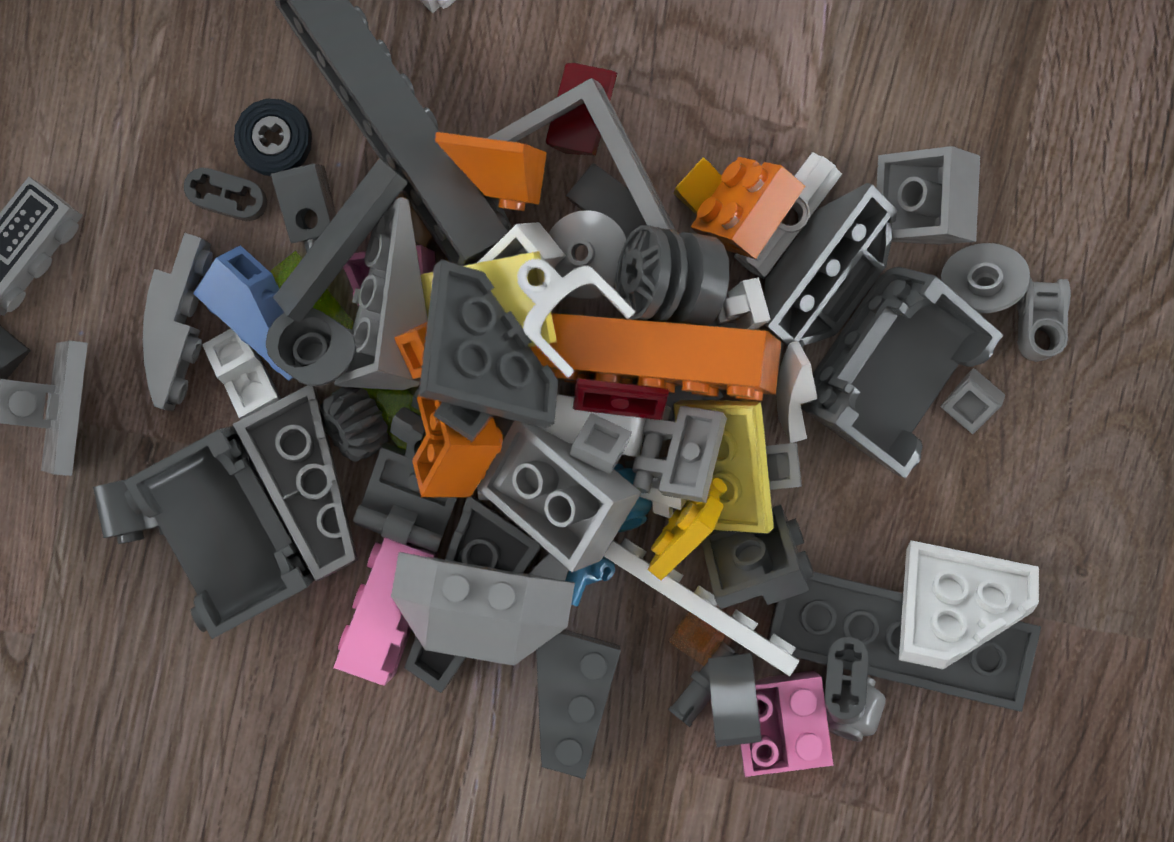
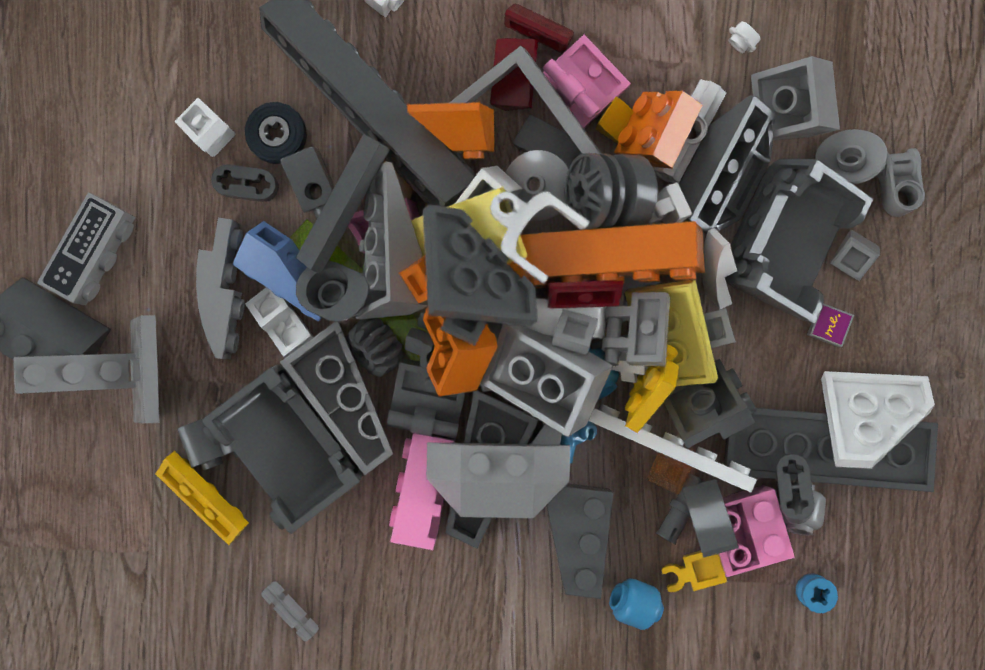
camera: 10 degrees left, 0 degrees up
(111, 577) = (202, 497): none -> yellow plate
(186, 117) = (205, 128): none -> white slope
(198, 735) = (290, 611): none -> light grey axle
(621, 55) = (538, 27): none -> dark red slope
(629, 793) = (636, 604): none -> dark azure head
(668, 131) = (585, 80): none -> bright pink plate
(714, 764) = (697, 570): none -> yellow plate
(852, 806) = (810, 587): none -> dark azure wheel
(875, 108) = (744, 37): none -> white plate
(928, 484) = (831, 326): none -> magenta tile

